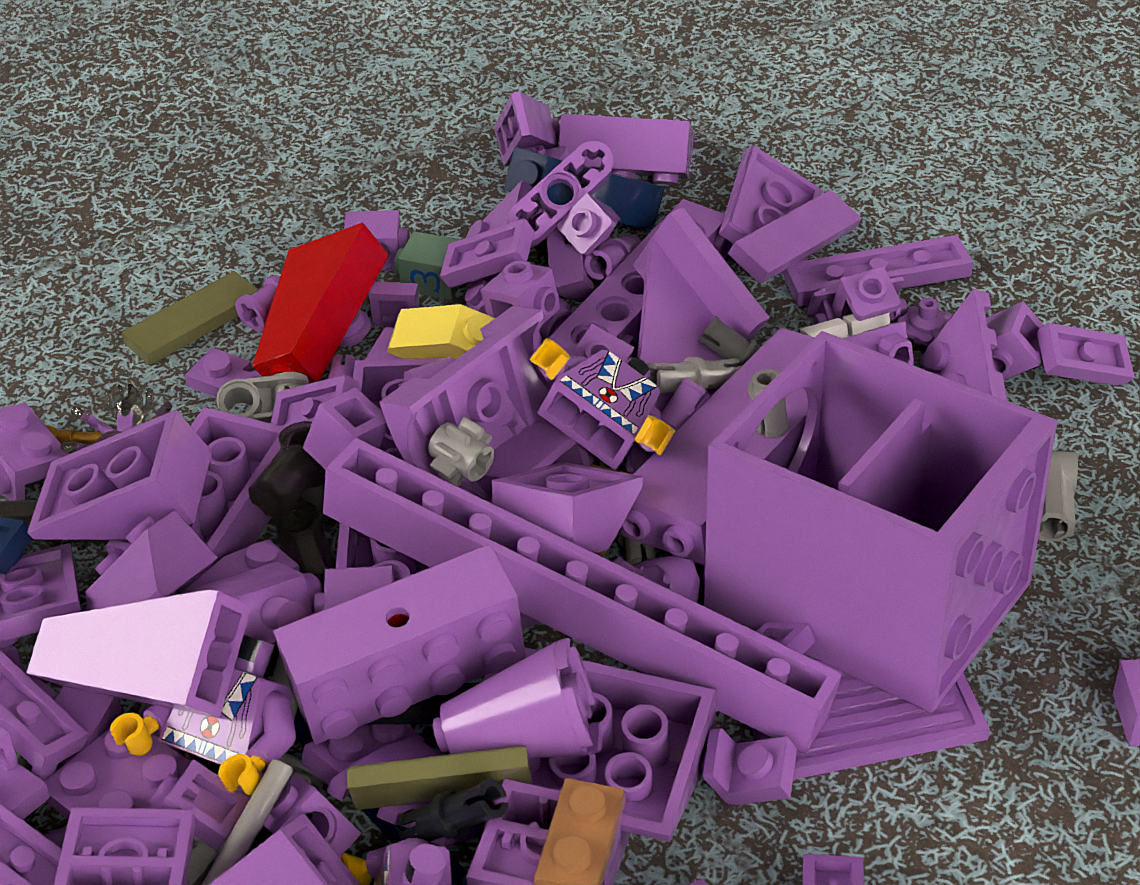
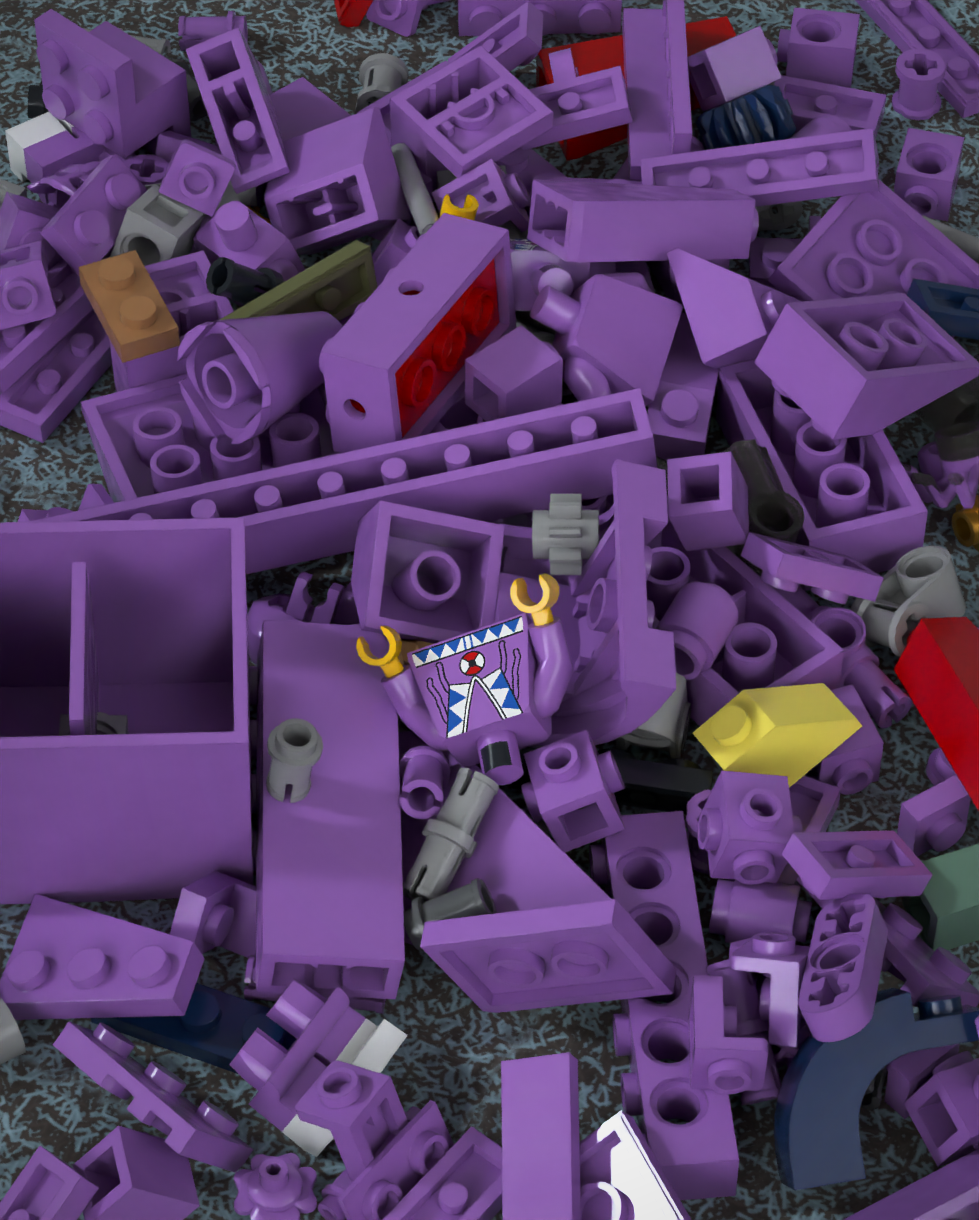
camera: 140 degrees right, 5 degrees up
(649, 212) = (715, 1053): none -> medium lavender bracket

